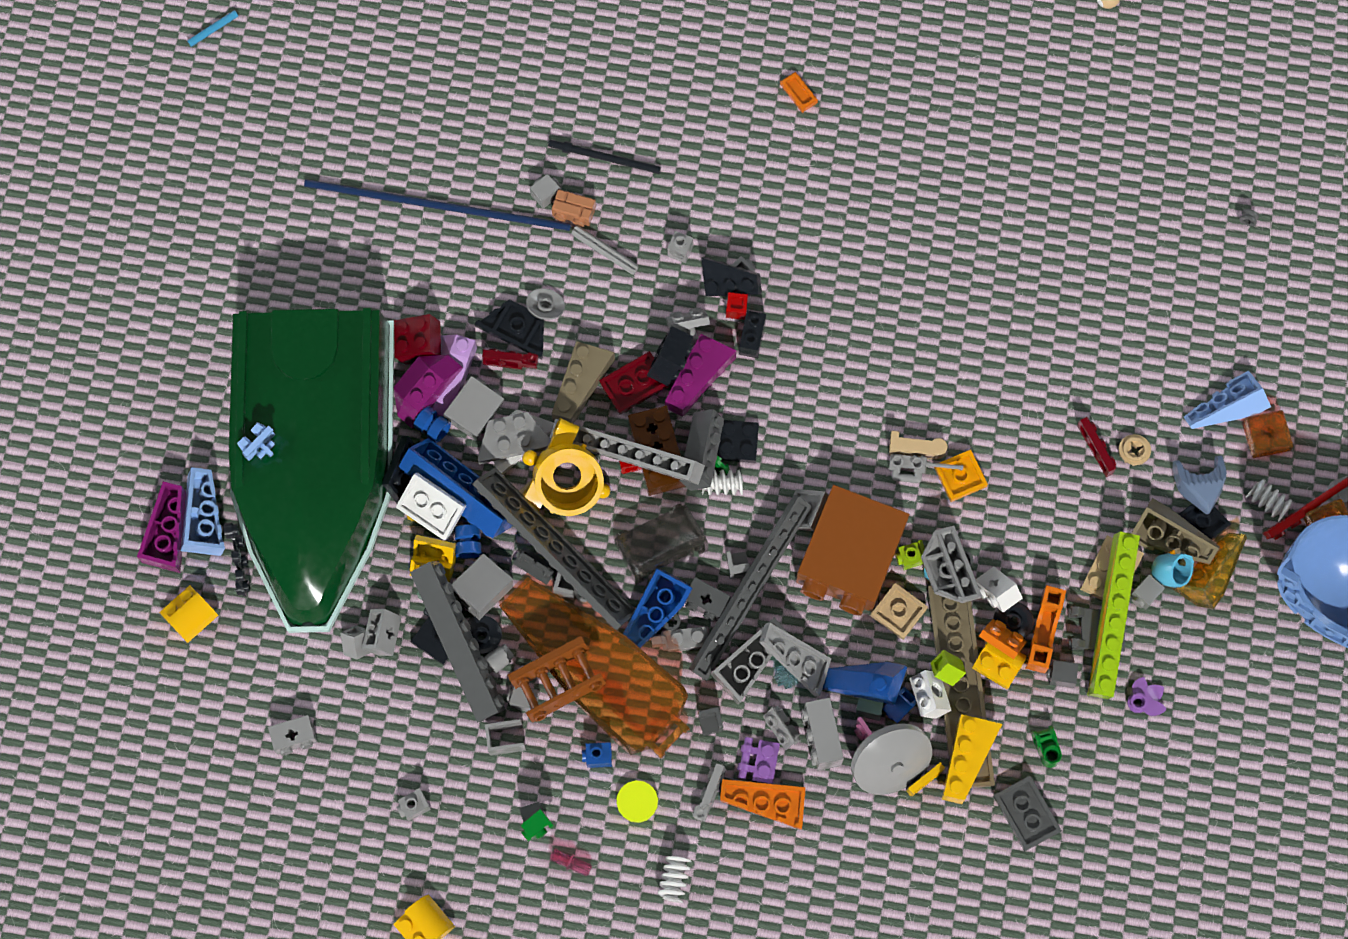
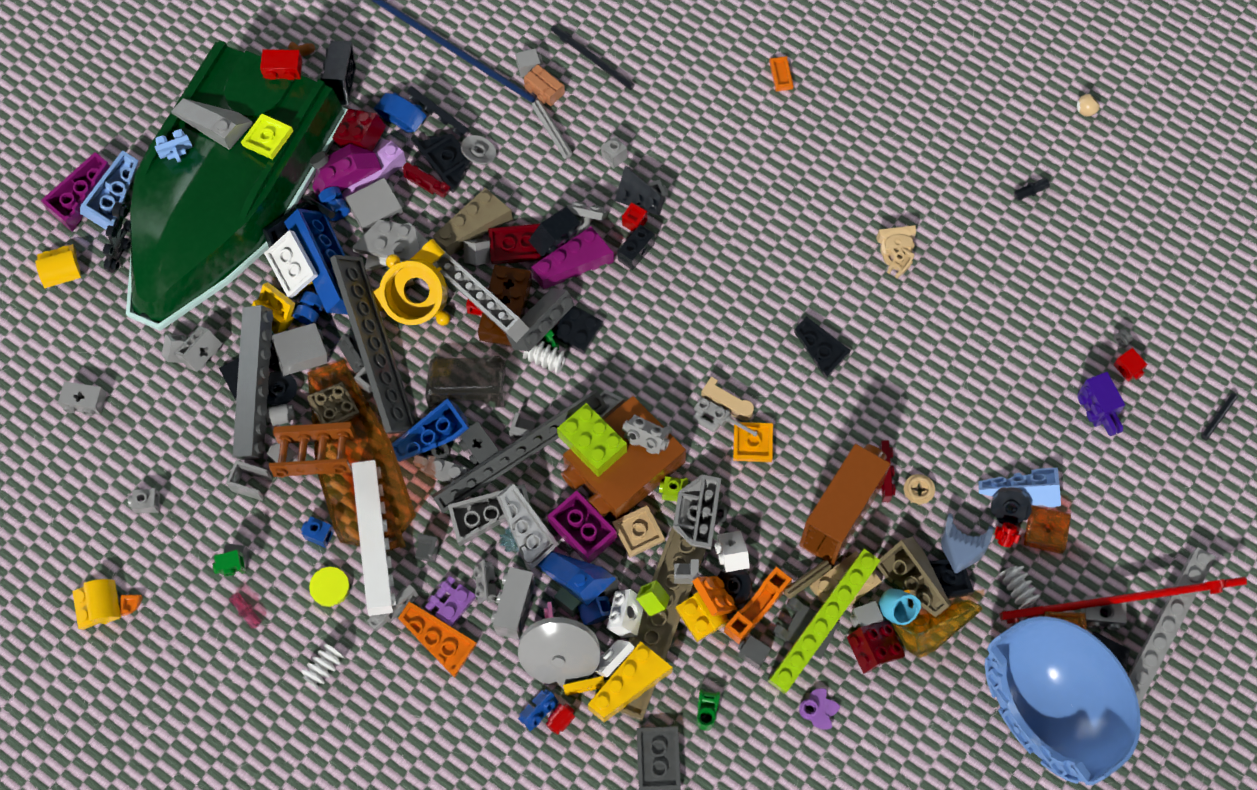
camera: 25 degrees right, 5 degrees down
(286, 399) = (215, 122): none -> light grey wedge
(307, 278) = (305, 49): none -> dark orange arm
(320, 310) = (281, 64): none -> red brick
(347, 390) = (267, 136): none -> neon yellow plate
(363, 283) = (339, 69): none -> black brick
(396, 387) = (319, 160): none -> dark grey tile
(421, 434) = (312, 202): none -> black bar
(446, 300) = (400, 112): none -> blue brick
(454, 909) = (129, 603): none -> orange tile
(477, 282) = (432, 108): none -> black wing
(545, 626) = (333, 404): none -> dark tan tile
(599, 409) = (477, 251): none -> light grey panel
(657, 736) = (372, 538): none -> white brick
(820, 546) = (592, 439): none -> lime brick
(846, 632) = (582, 527): none -> magenta brick
(869, 517) = (646, 434): none -> light grey brick
(893, 830) = (544, 702): none -> blue hinge
(920, 820) = (560, 718): none -> red brick
(942, 739) = (613, 657): none -> white plate
(966, 629) = (686, 572): none -> light grey panel
(978, 353) = (821, 346): none -> black wing
(999, 223) = (897, 248): none -> tan piece
(1077, 583) = (807, 579): none -> dark tan axle
(1081, 496) = (845, 502): none -> dark orange brick
(1095, 105) = (1031, 189): none -> black axle
(1168, 616) = (875, 645): none -> dark red bracket
(1222, 418) = (1018, 498): none -> black plate
(1235, 456) = (1007, 535): none -> red gear
(1262, 291) = (1102, 403): none -> dark purple brick
(1268, 241) = (1130, 365): none -> red brick

